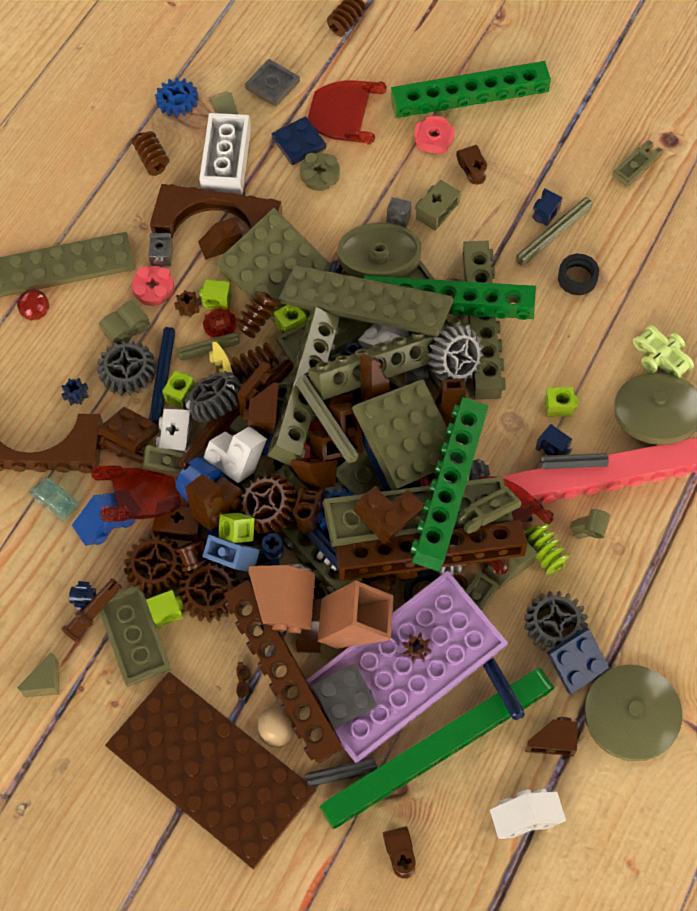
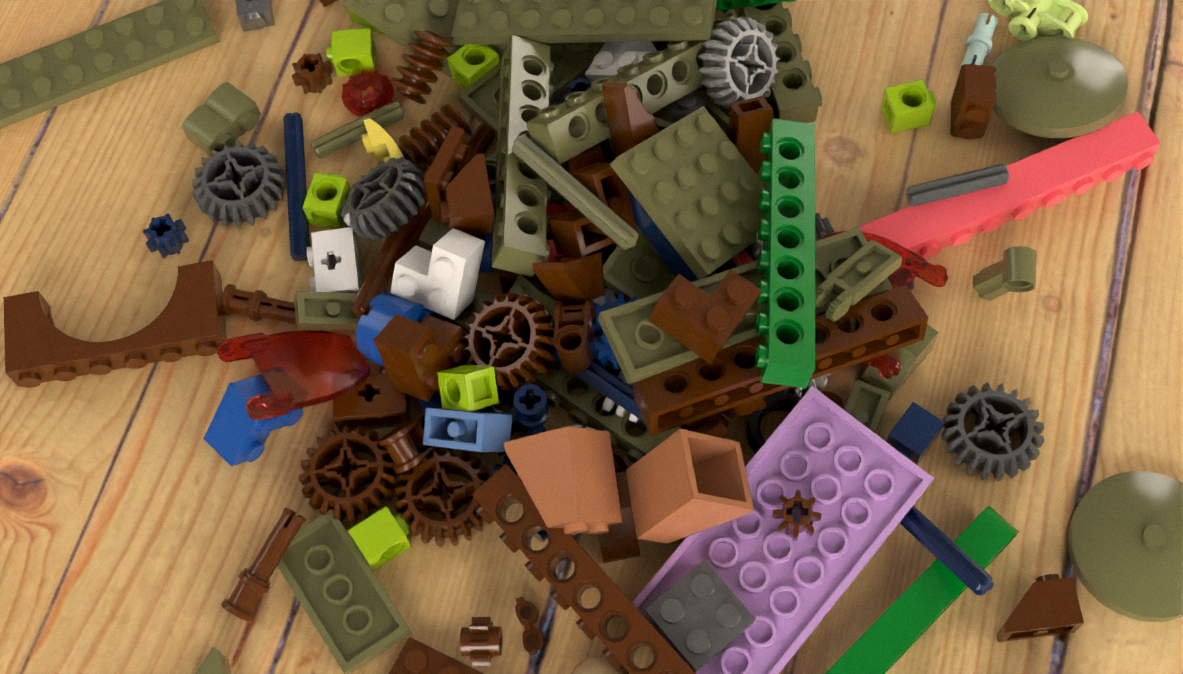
camera: 10 degrees left, 0 degrees up
(33, 304) = (73, 120): clear red hair -> none
(54, 498) = (168, 402): clear light blue slope -> none
(81, 594) = (242, 545): dark blue gear -> none
(129, 429) = (263, 275): reddish brown plate -> none
(149, 275) = (240, 46): coral plate -> none
(211, 683) = (481, 641): none -> reddish brown gear
(506, 614) = (915, 433): none -> dark blue brick
(546, 548) = (951, 327): lime piece -> none
(554, 442) = (915, 165): dark blue brick -> none
(578, 660) = (1044, 482): plate -> none
(601, 408) = (973, 101): none -> reddish brown brick
(618, 369) = (980, 41): none -> light aqua pin

